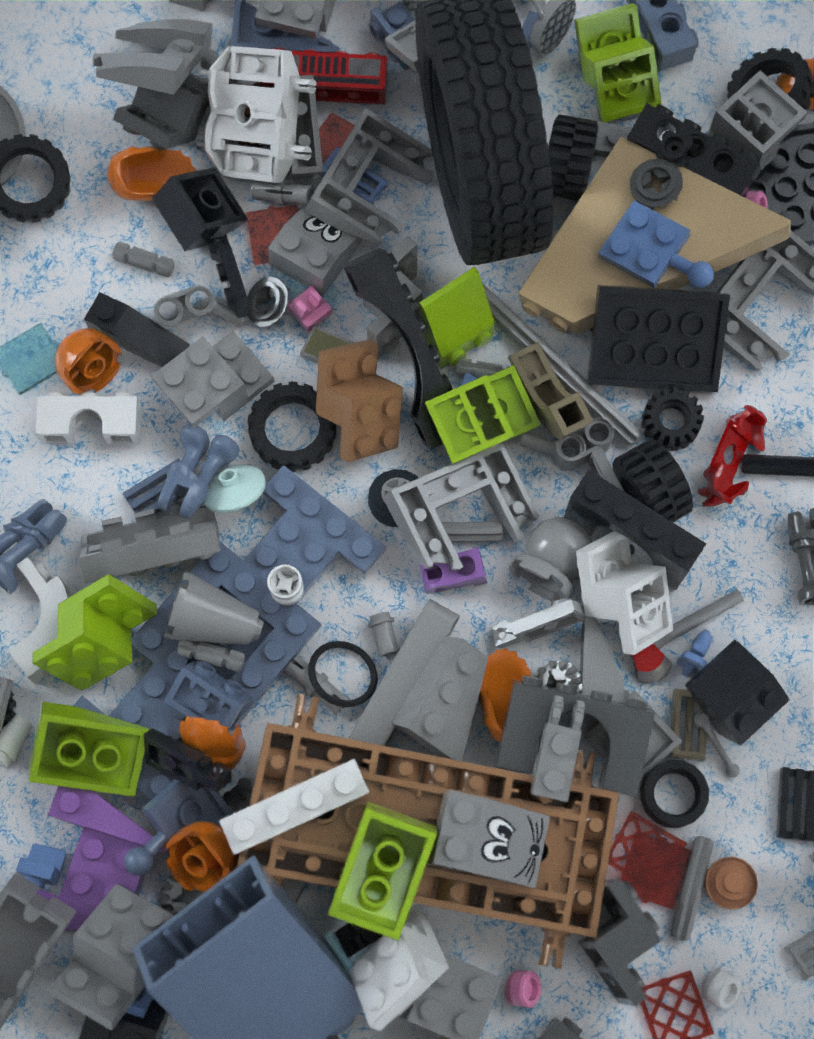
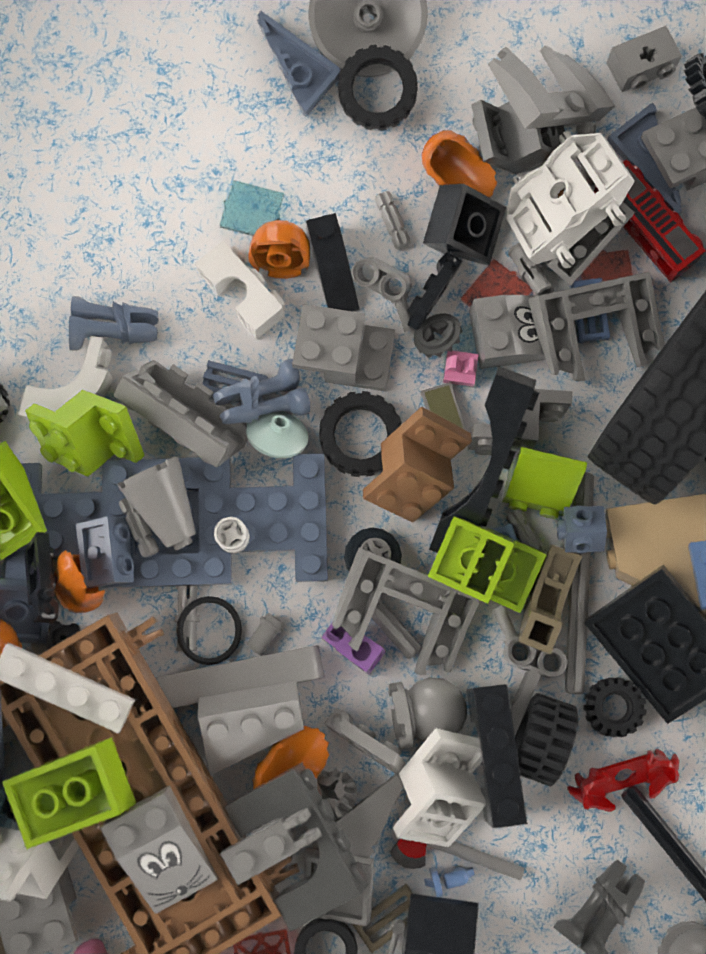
camera: 50 degrees right, 5 degrees up
(518, 321) = (583, 529): none -> sand blue brick

